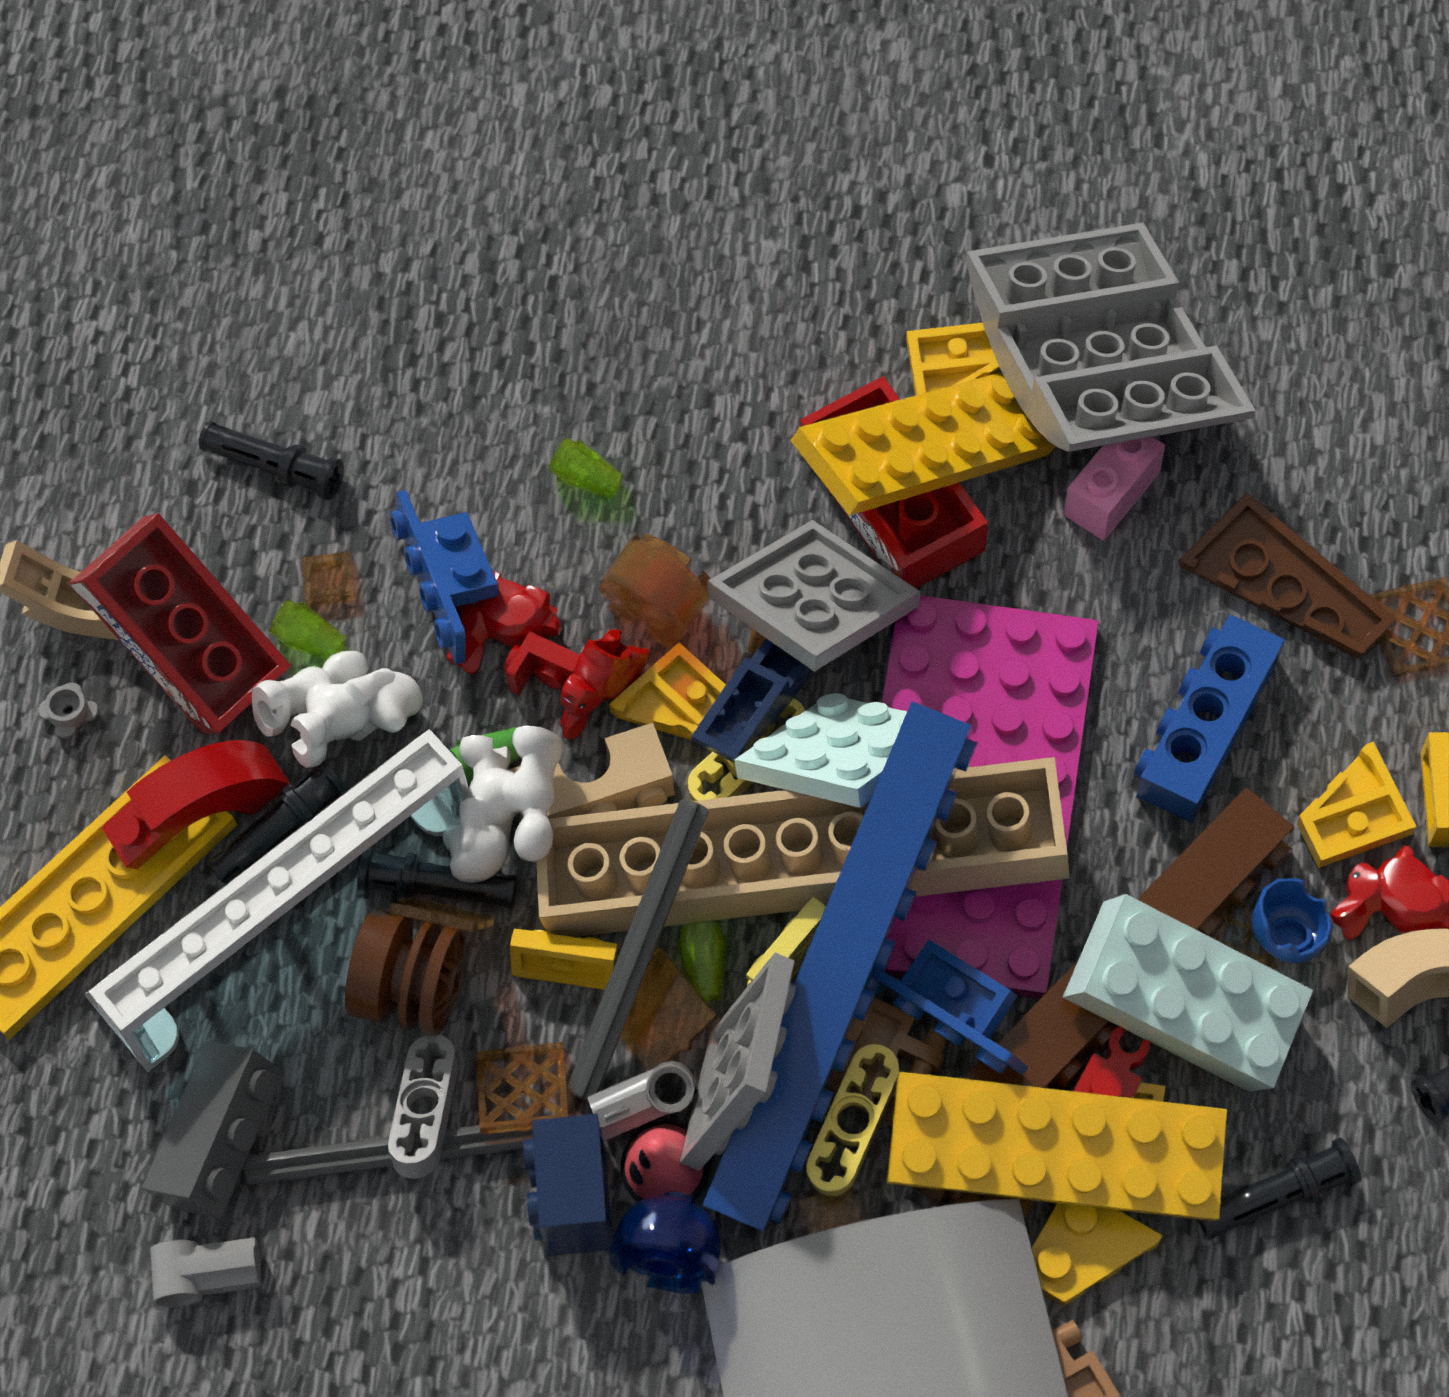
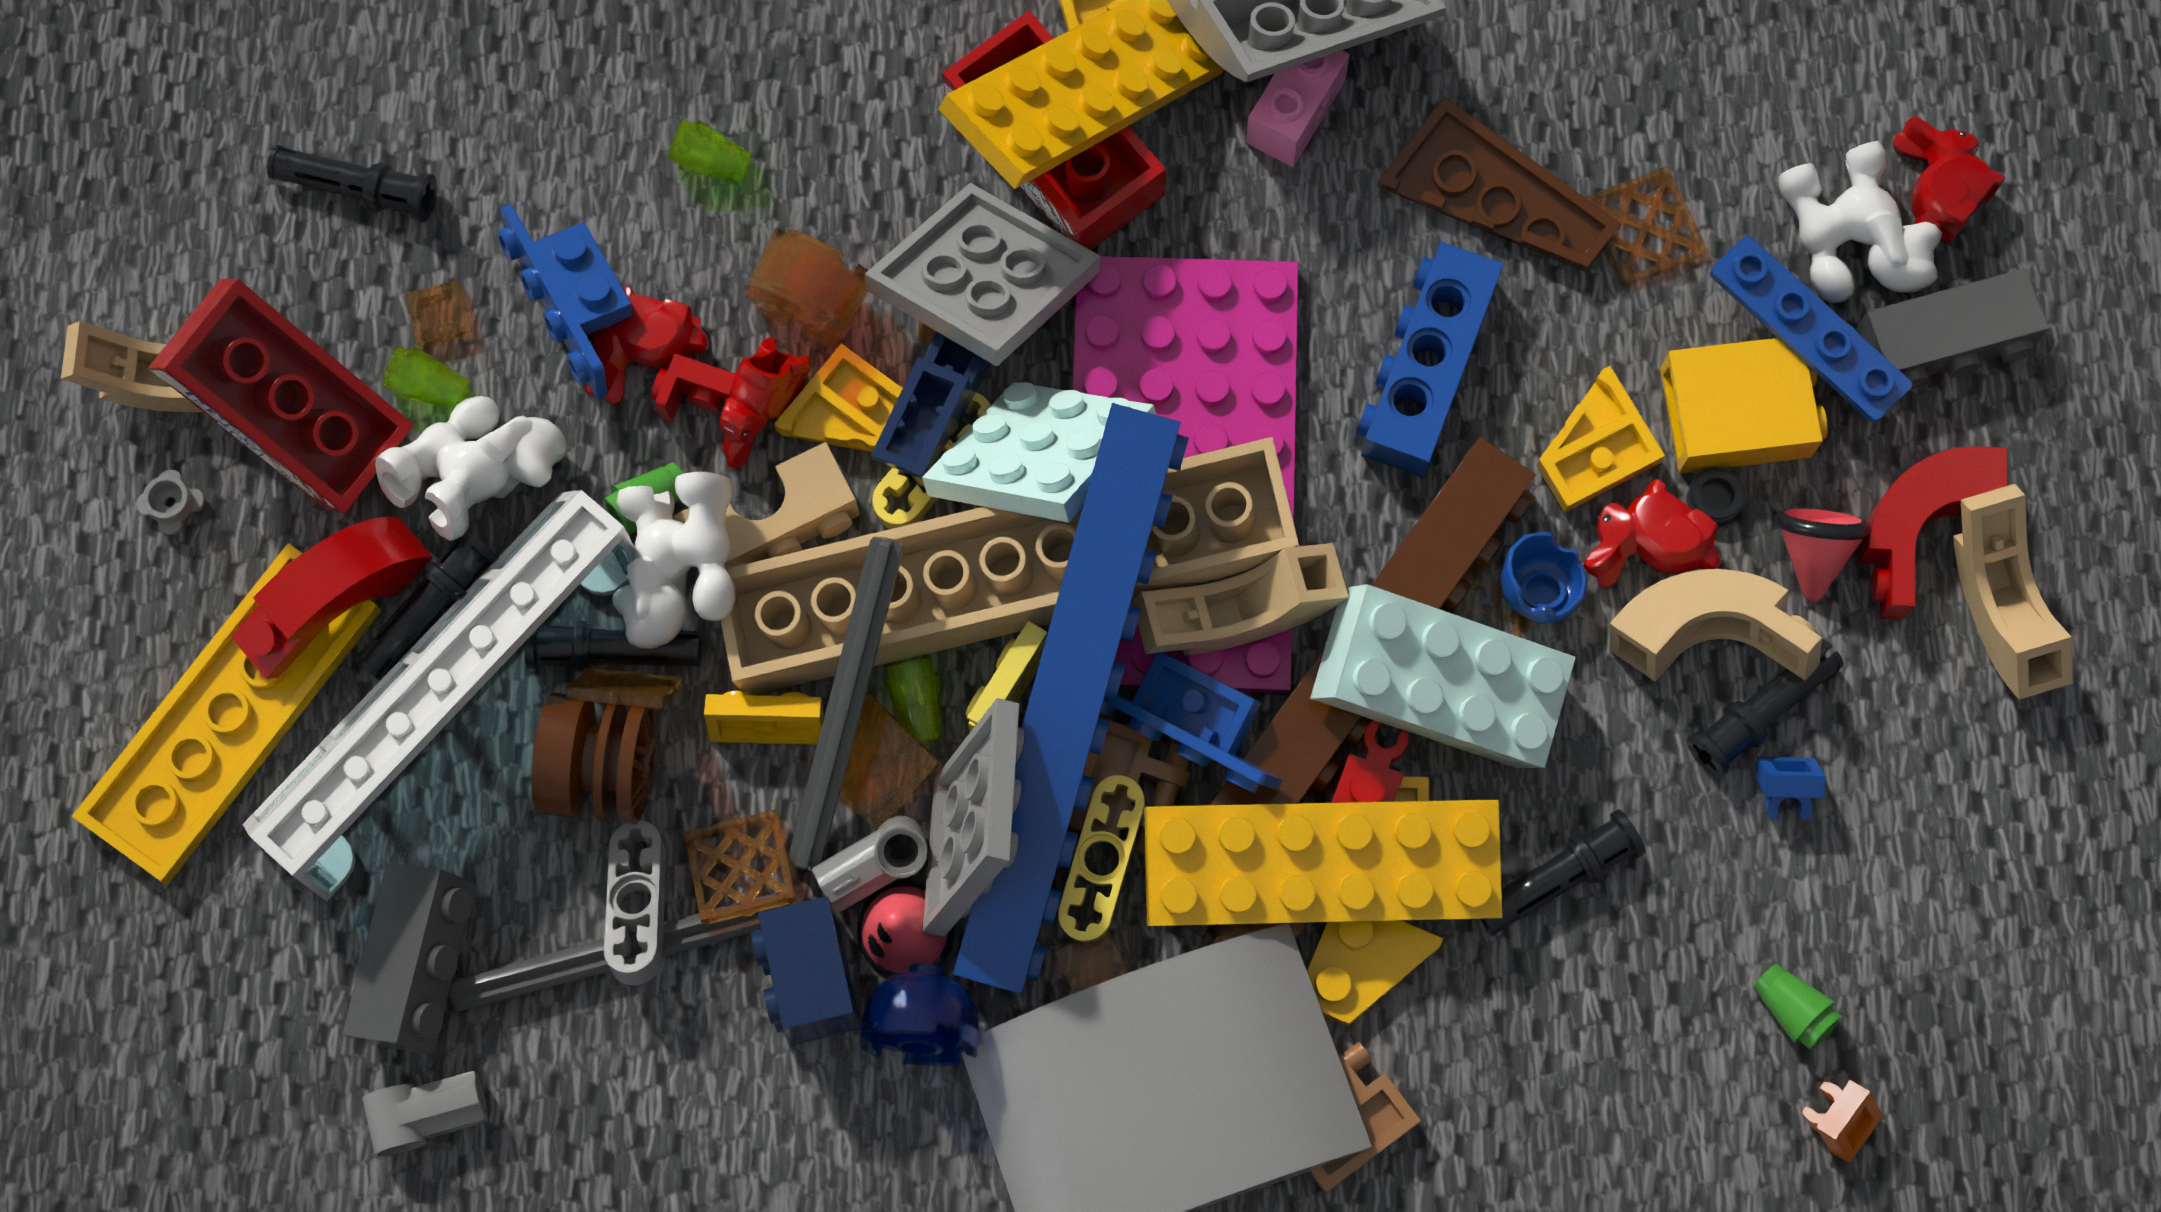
camera: 10 degrees left, 10 degrees up
(1014, 911) = (1244, 608): none -> tan arch

